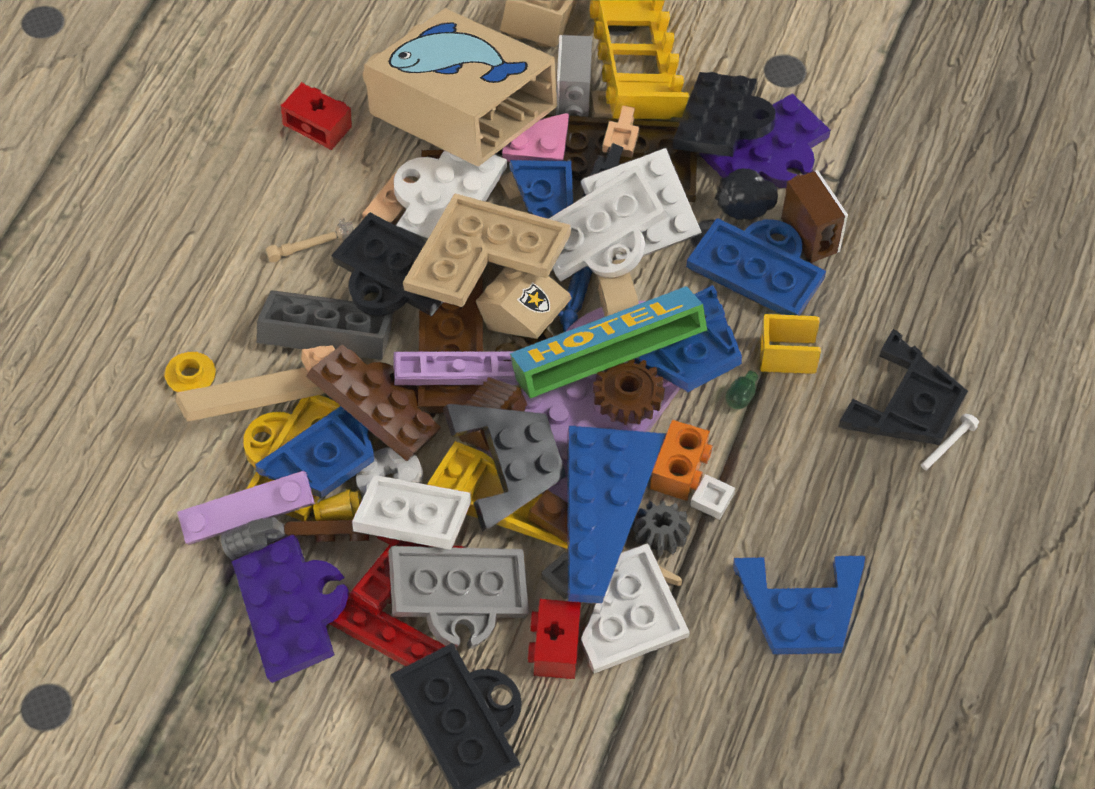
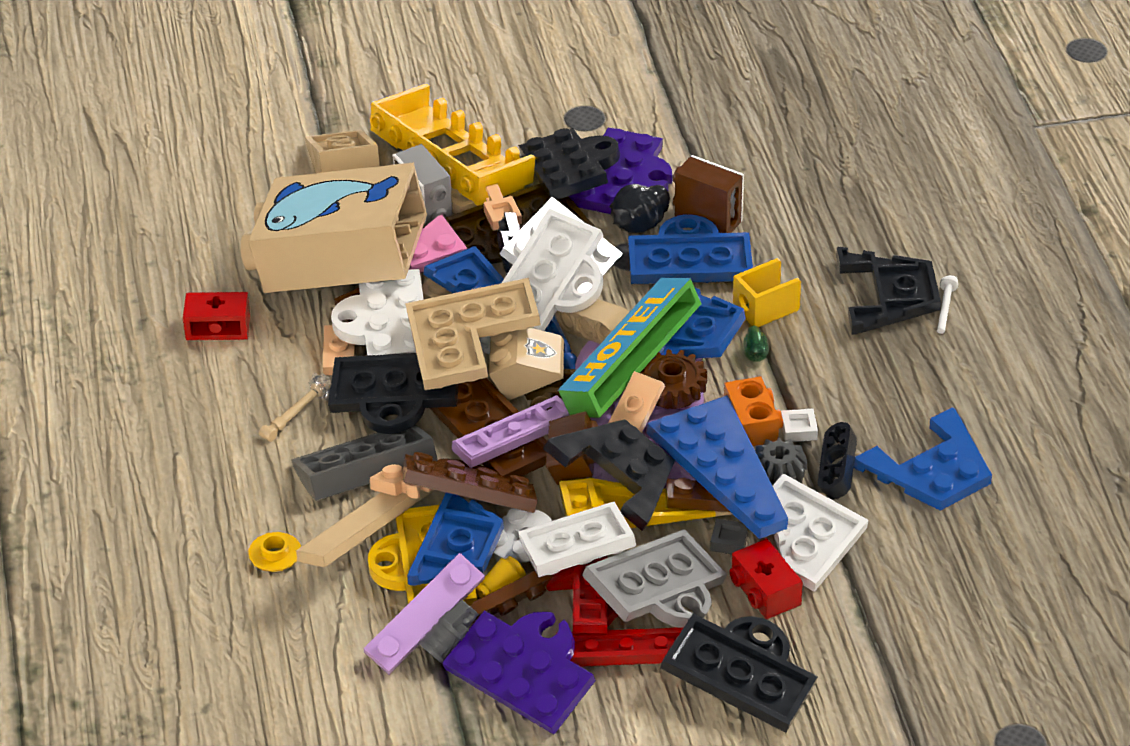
camera: 30 degrees left, 15 degrees down
(573, 402) = (638, 400): none -> light nougat plate
(701, 568) = (843, 469): none -> black beam

